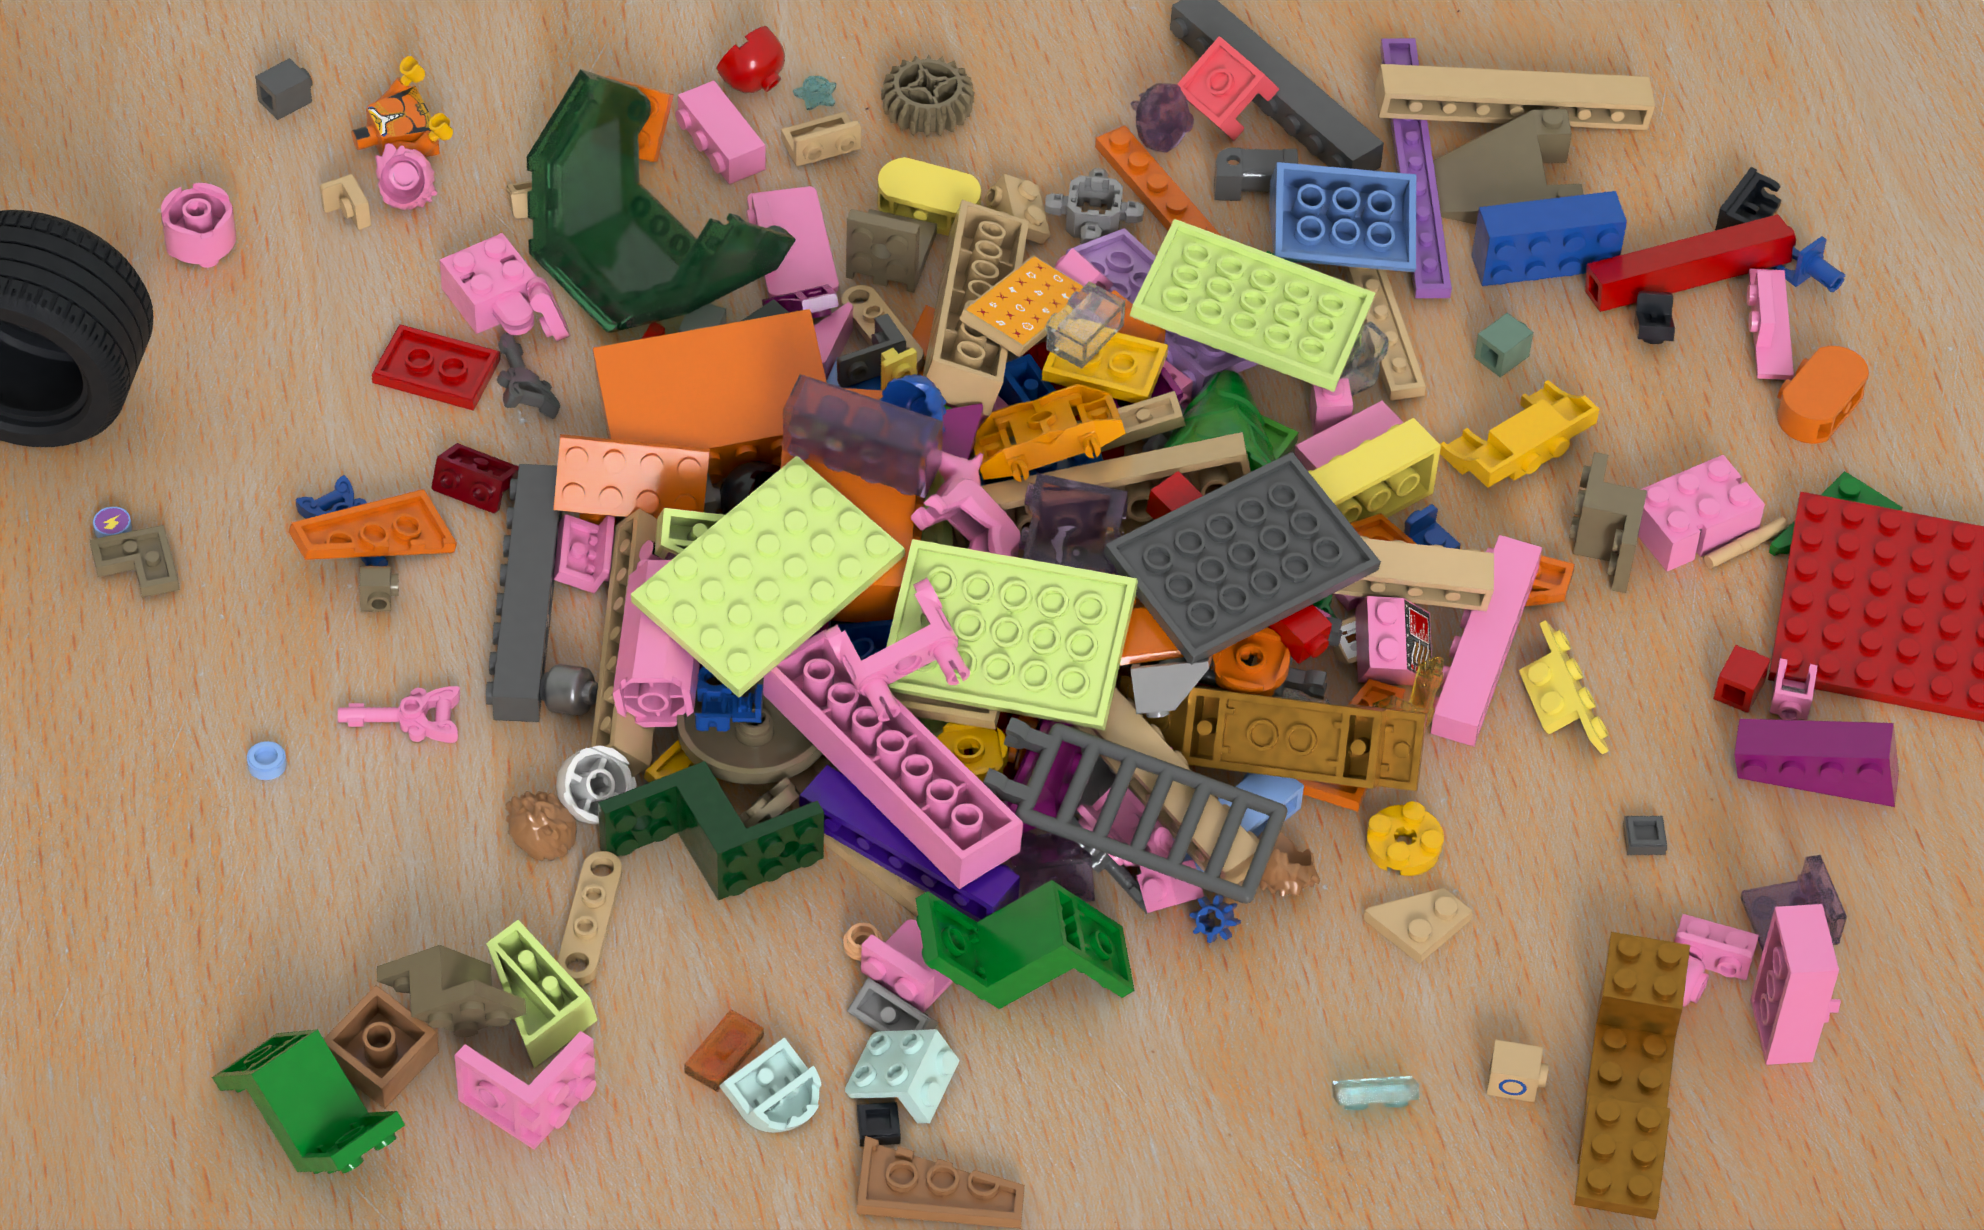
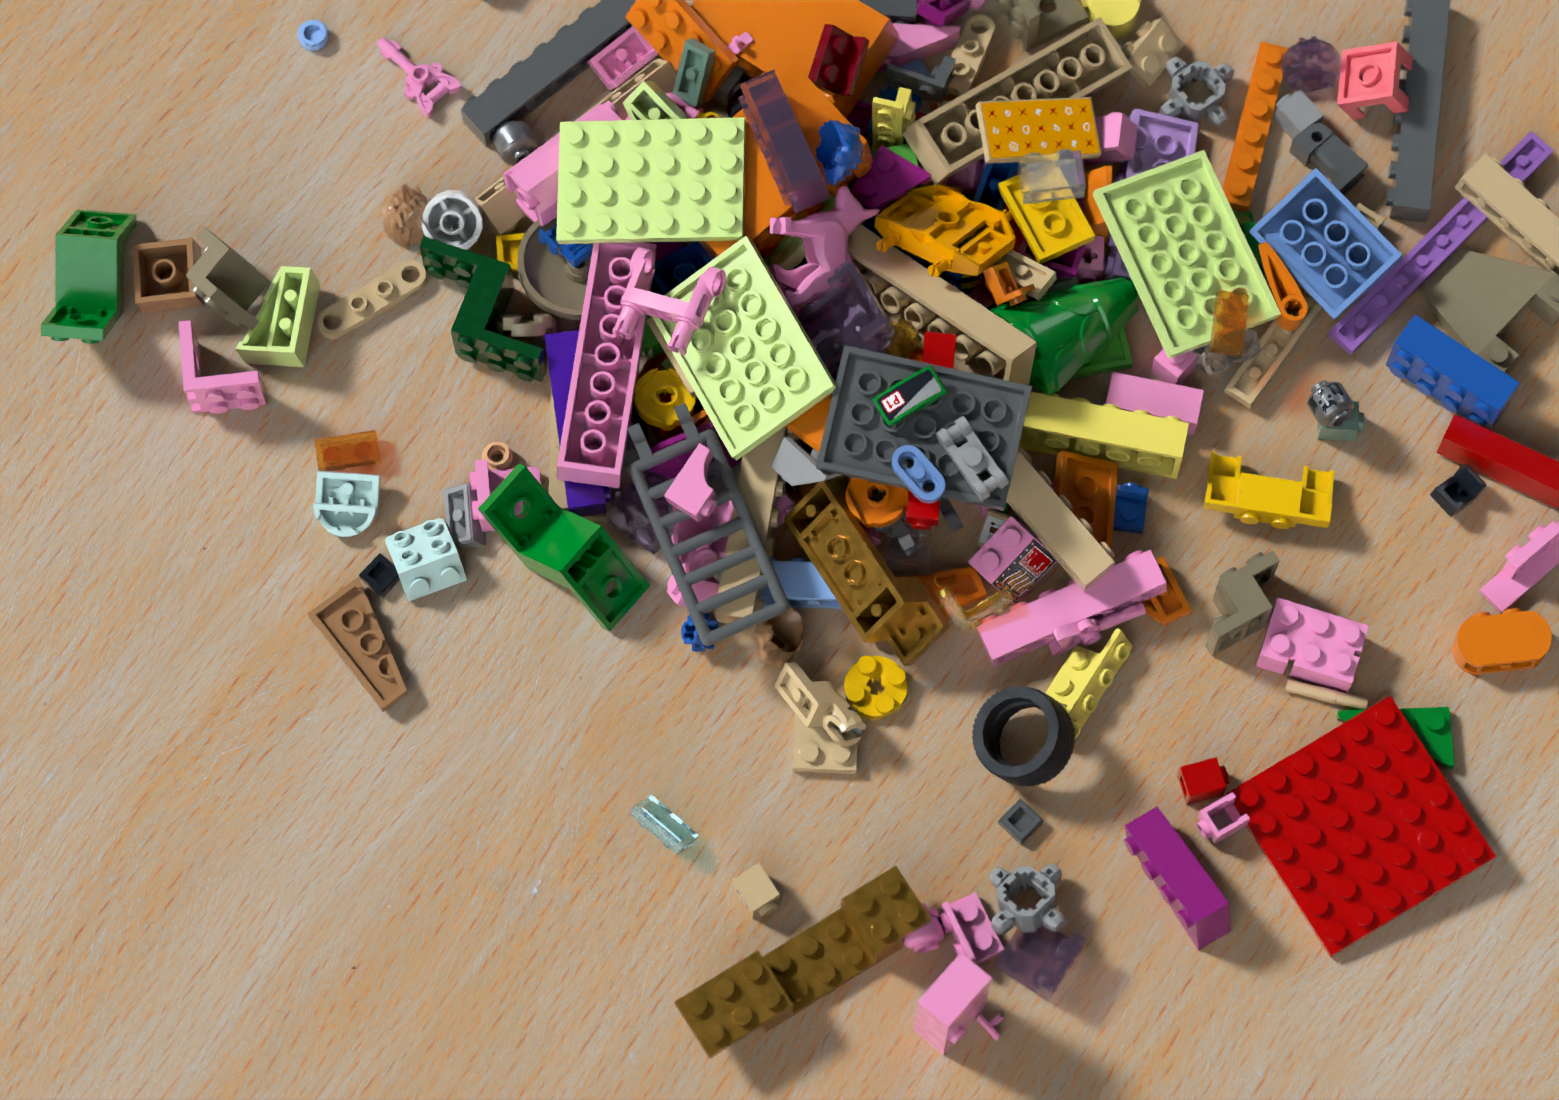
camera: 50 degrees right, 20 degrees up
(679, 481) = (694, 72): none -> sand green plate
(694, 435) = (740, 43): none -> bright pink piece
(808, 358) = (838, 61): none -> dark red bracket
(1102, 774) = (691, 489): none -> bright pink arch
(1143, 431) = (1003, 285): none -> orange bracket
(1194, 164) = (1296, 113): none -> light grey brick
(1209, 534) = (910, 395): none -> slope
(1287, 587) = (919, 474): none -> medium blue plate
(1314, 542) = (972, 458): none -> light grey plate
(1351, 324) = (1229, 323): none -> clear orange plate
(1357, 273) = (1283, 288): none -> orange piece
(1384, 882) = (820, 705): none -> tan plate
(1495, 322) = (1330, 404): none -> flat silver head
(1519, 644) = (1089, 629): none -> bright pink piece
(1567, 712) = (995, 715): none -> black tyre
(1734, 898) = (1026, 877): none -> light grey piece

